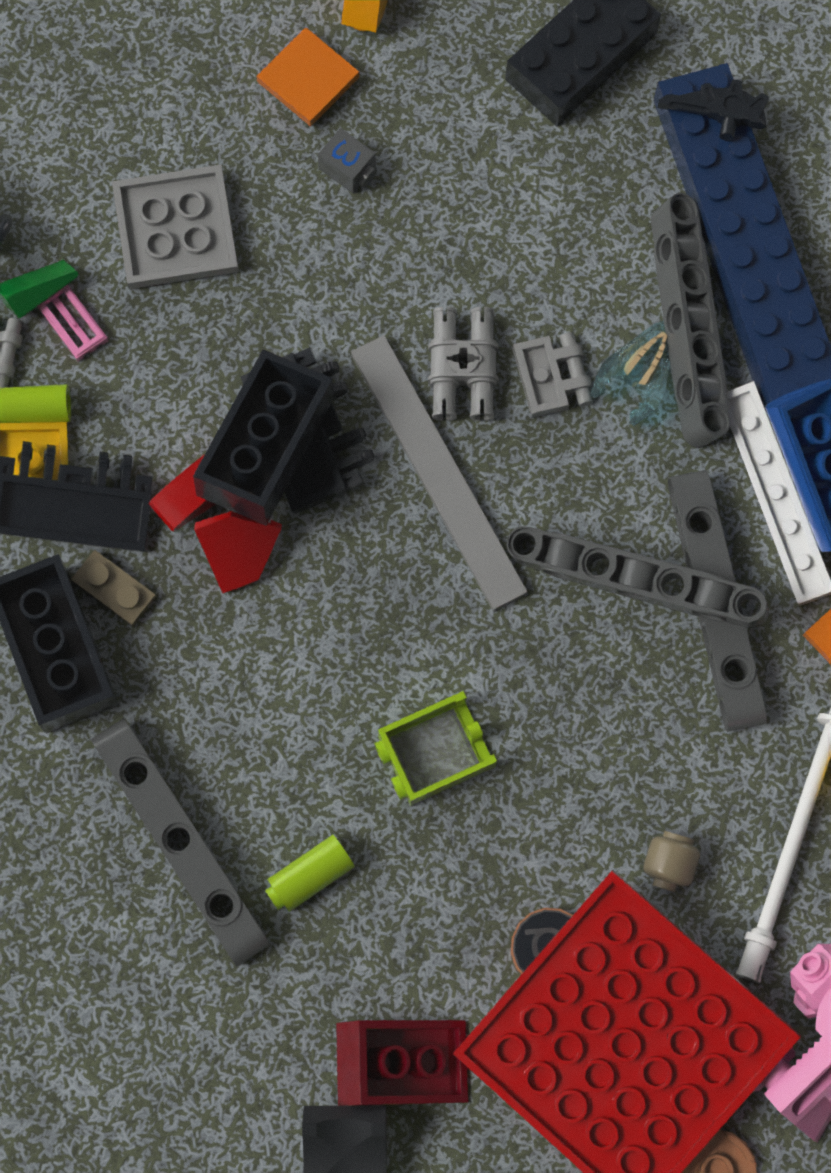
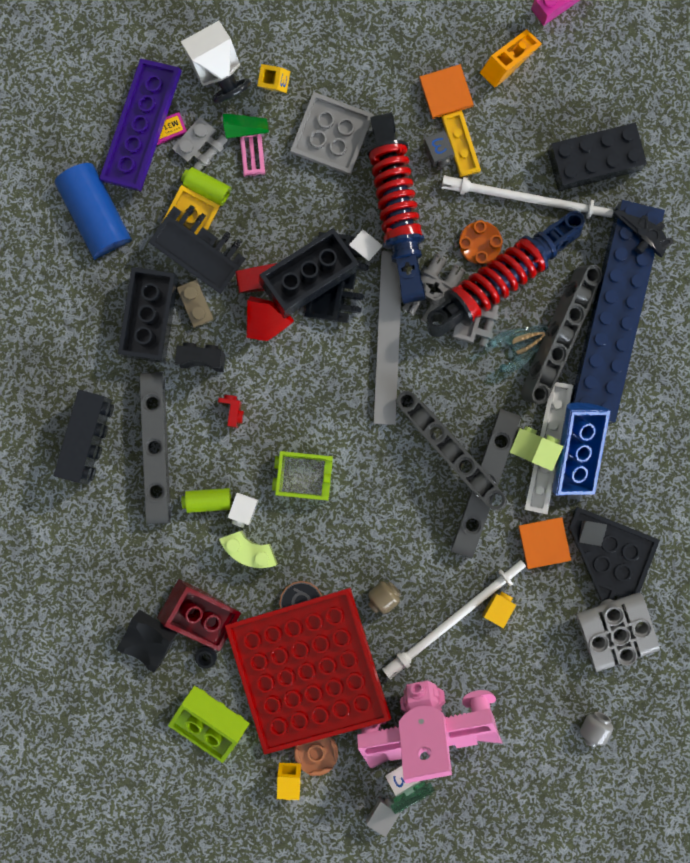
camera: 30 degrees right, 10 degrees up
(41, 194) = (273, 78): none -> yellow brick
(58, 887) = (84, 437): none -> black brick
(178, 654) = (191, 355): none -> black brick
(275, 717) = (235, 414): none -> red bracket
(323, 354) = (365, 245): none -> white sticker
(336, 273) = (395, 205): none -> piece
(373, 856) = (242, 510): none -> white brick
(391, 150) = (461, 143): none -> yellow tile
(417, 192) = (465, 186): none -> white bar
(420, 916) = (247, 552): none -> yellowish green brick
(452, 1136) = (201, 662): none -> black plate
(489, 258) = (480, 242): none -> orange dish
(553, 283) = (503, 274): none -> piece
(759, 500) = (536, 448): none -> yellowish green brick

